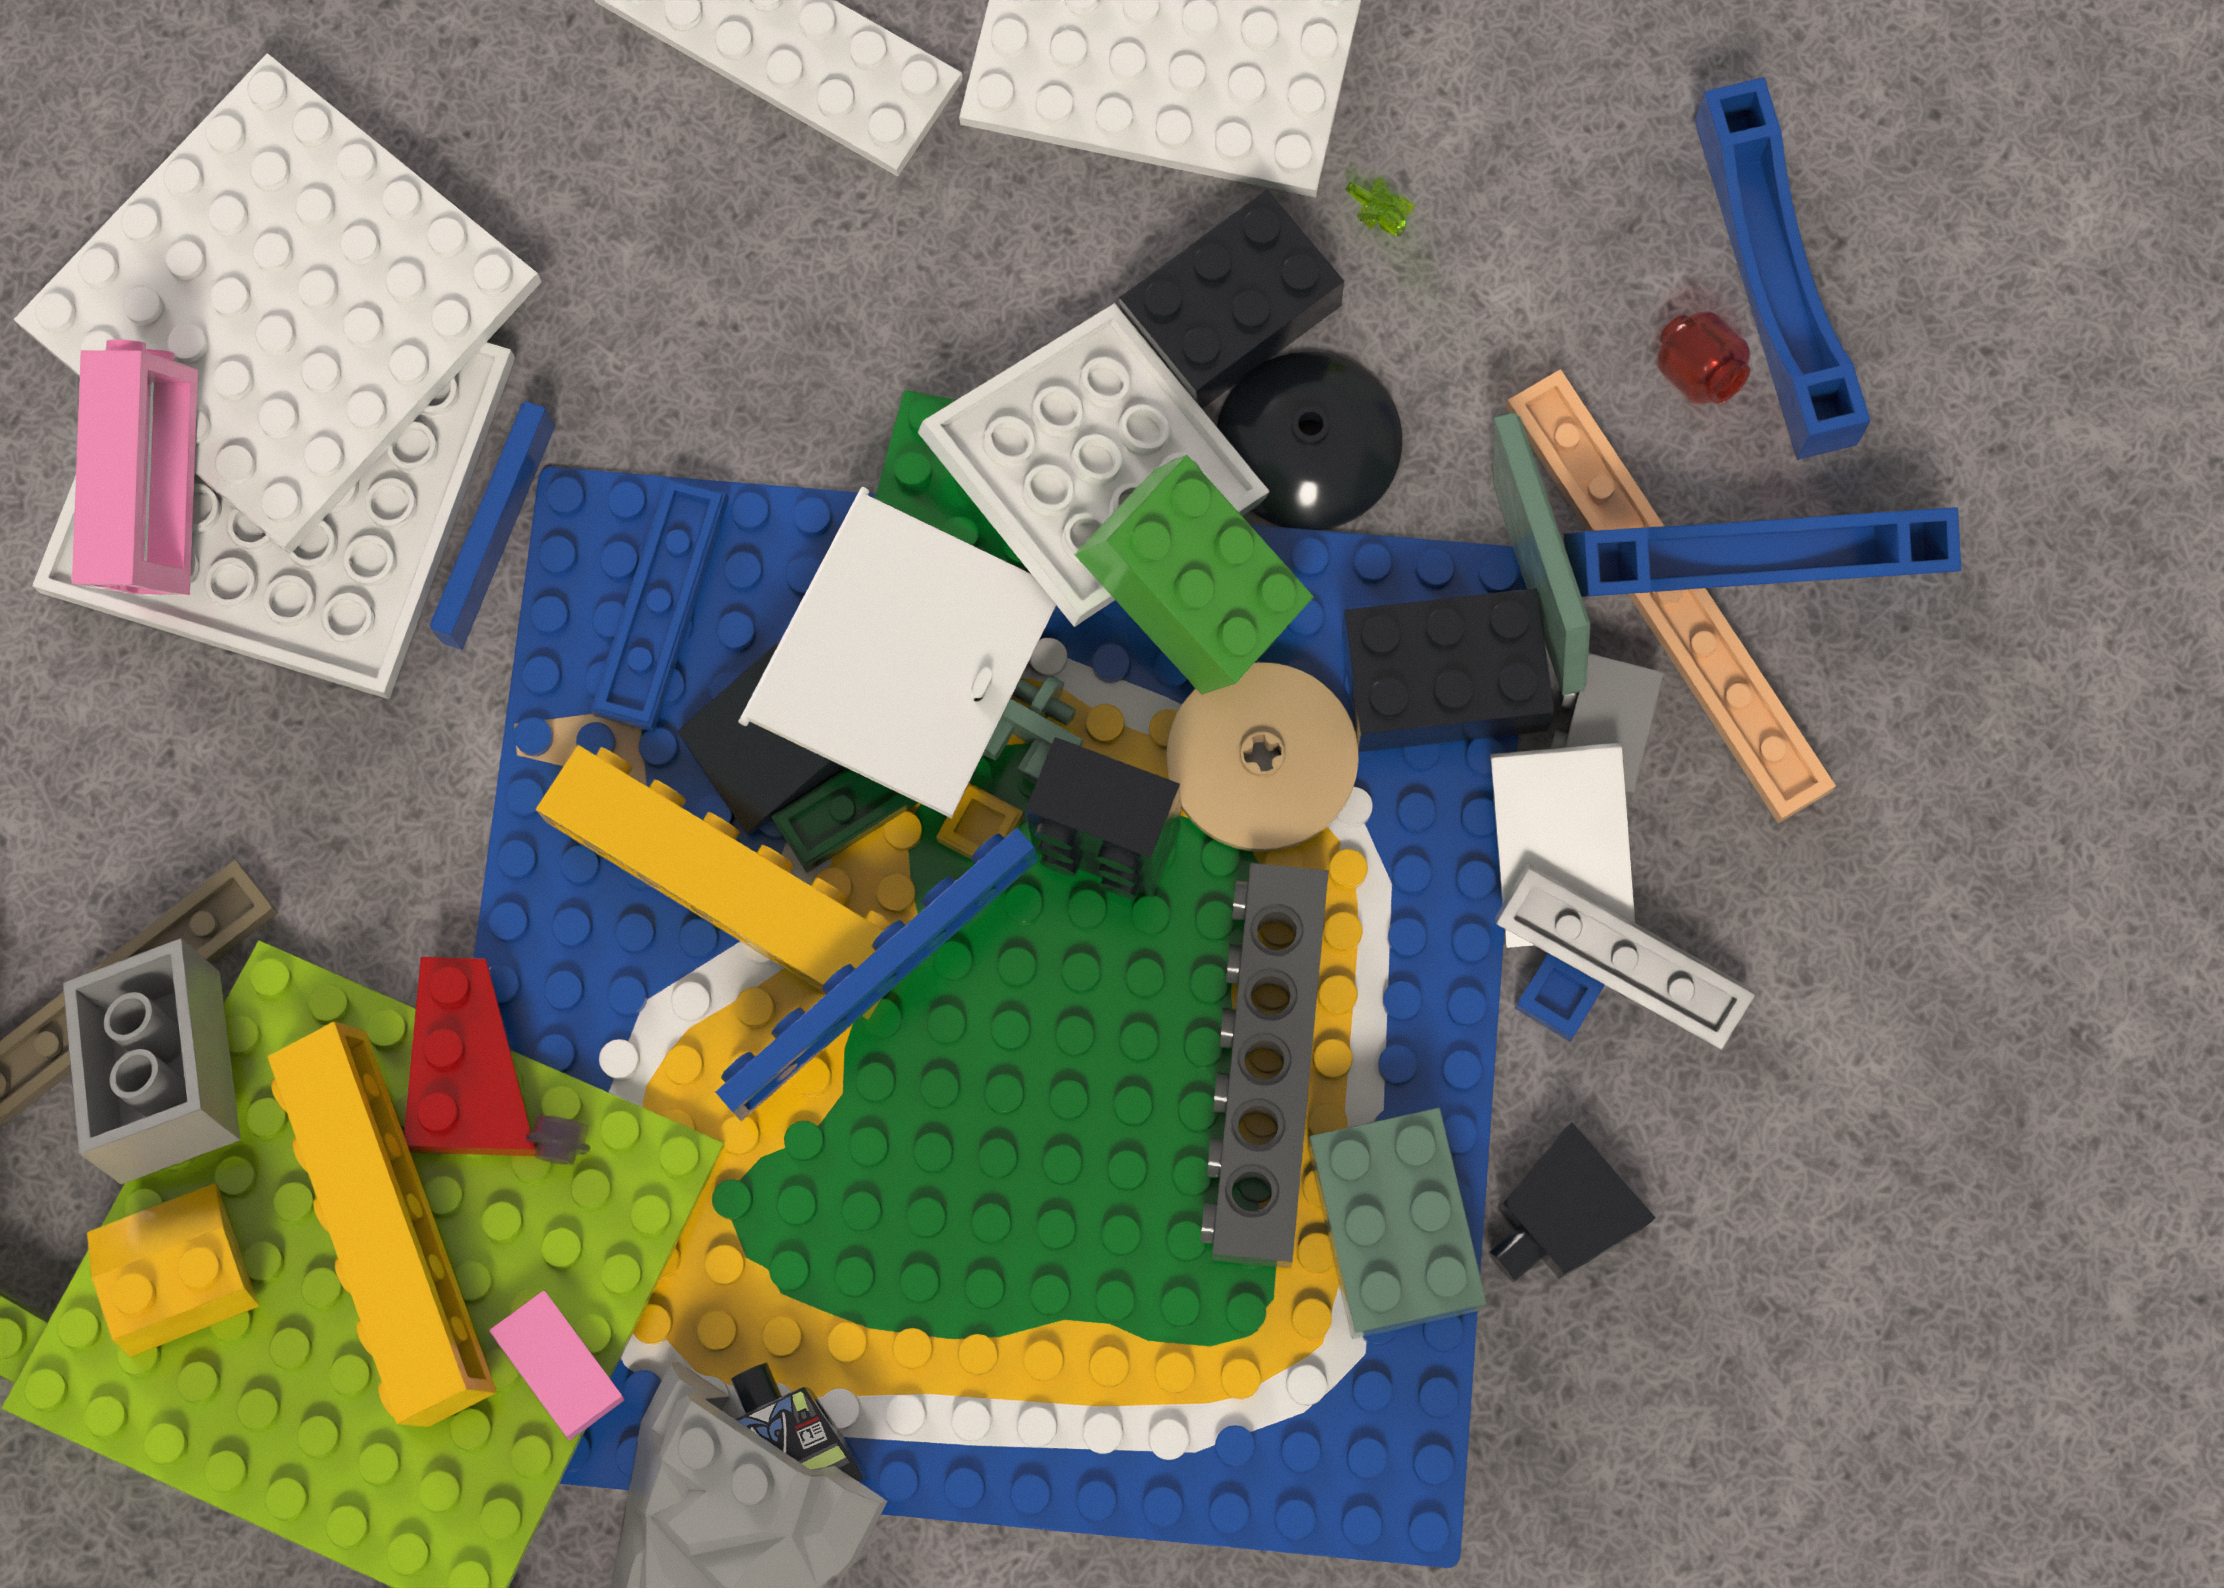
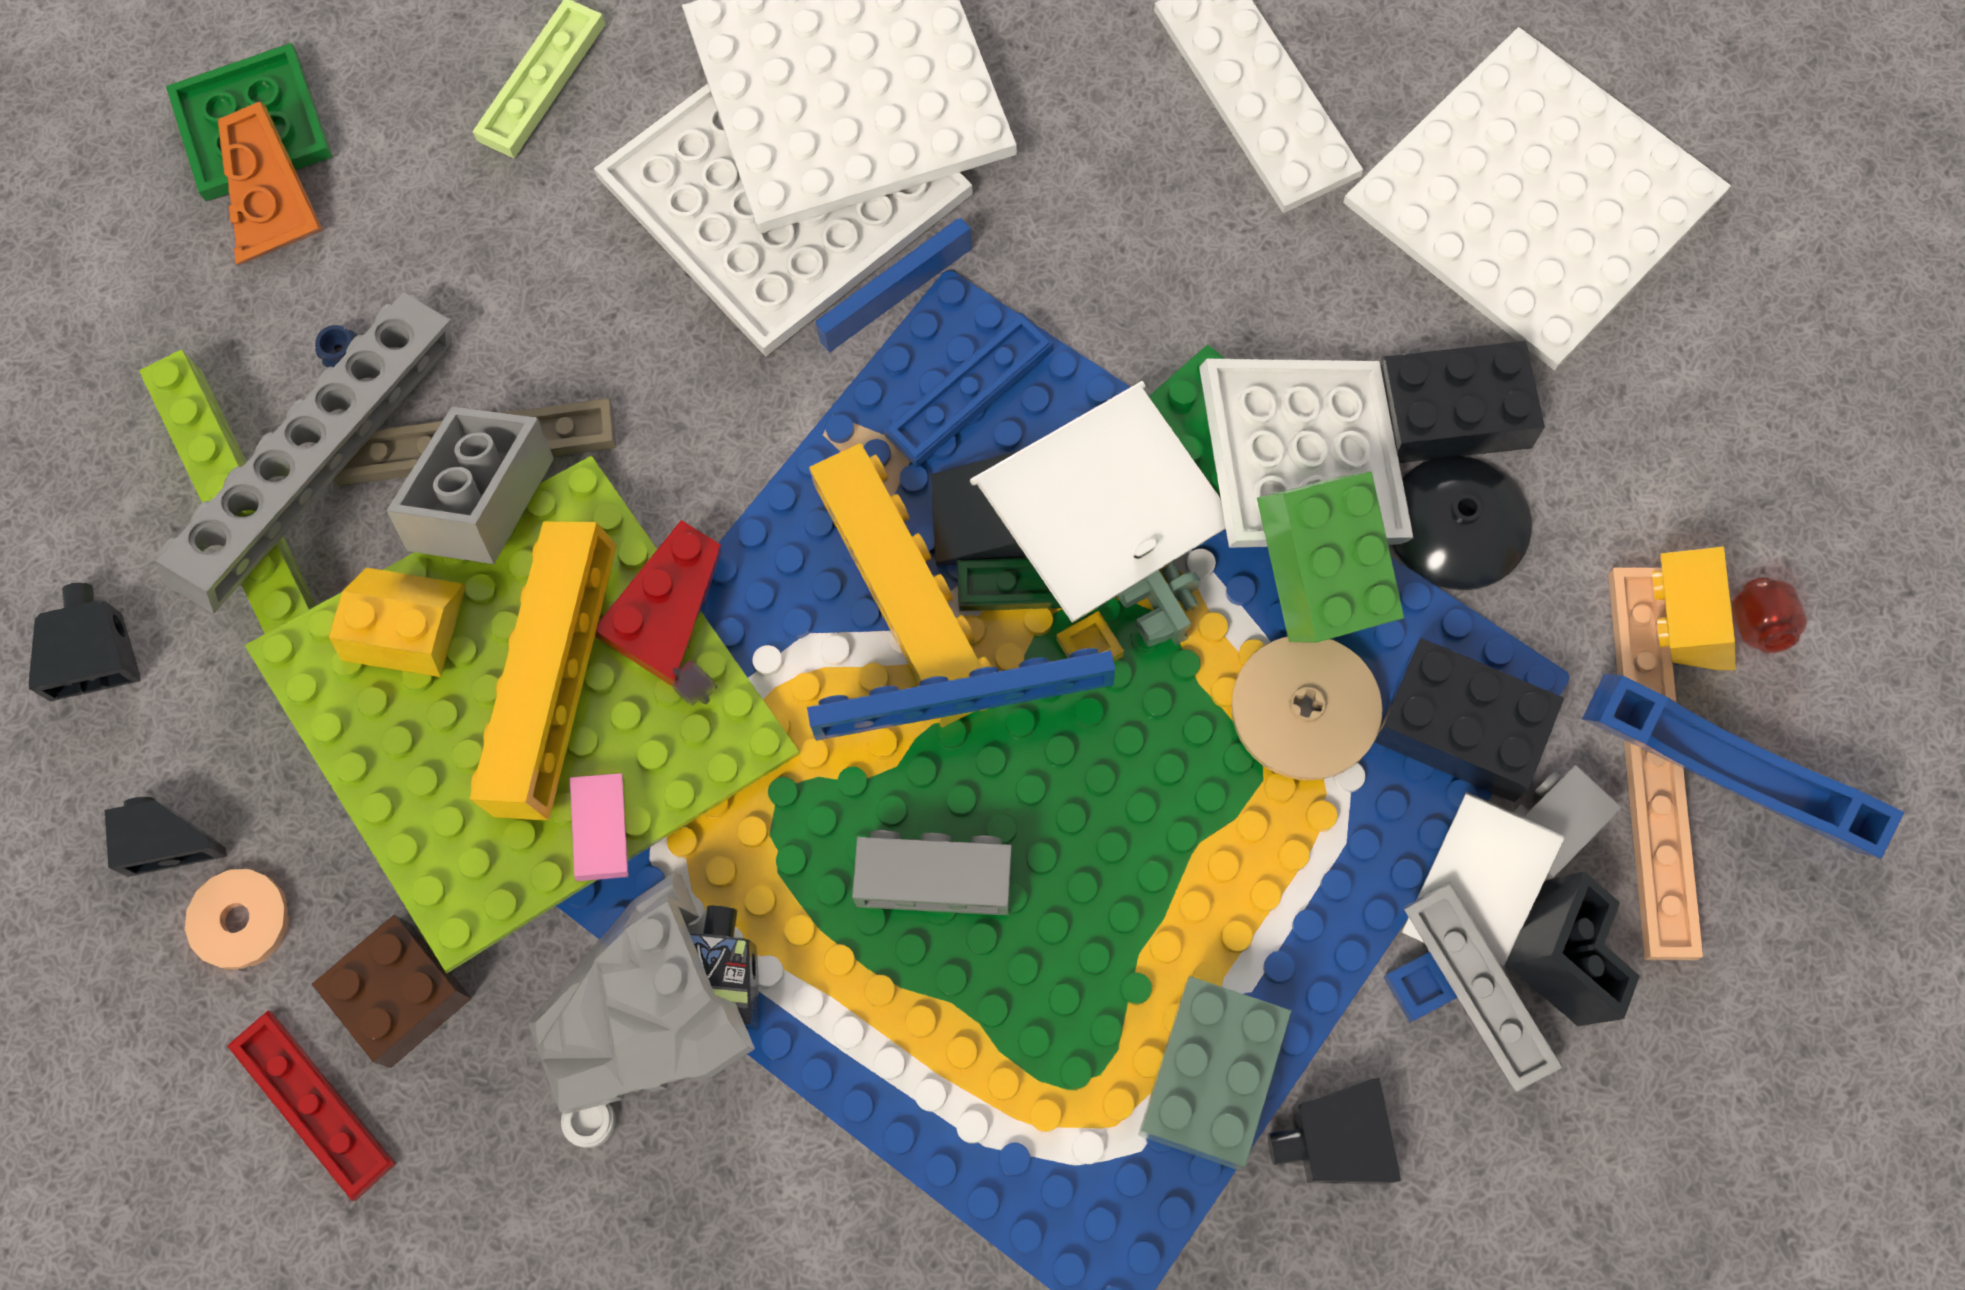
camera: 30 degrees right, 5 degrees down
(134, 470) = (691, 122): bright pink window -> none
(961, 1190) = (932, 873): none -> light grey brick
(1103, 819) = (1174, 680): black brick -> none
(1297, 900) = (1274, 814): dark grey brick -> none
(1381, 207) = (1596, 398): clear neon green plant -> none
(1541, 553) = (1580, 677): sand green tile -> none
(1623, 399) = (1696, 608): none -> yellow slope
(1688, 868) = (1565, 952): none -> black brick
(1753, 190) = (1843, 655): blue arch -> none

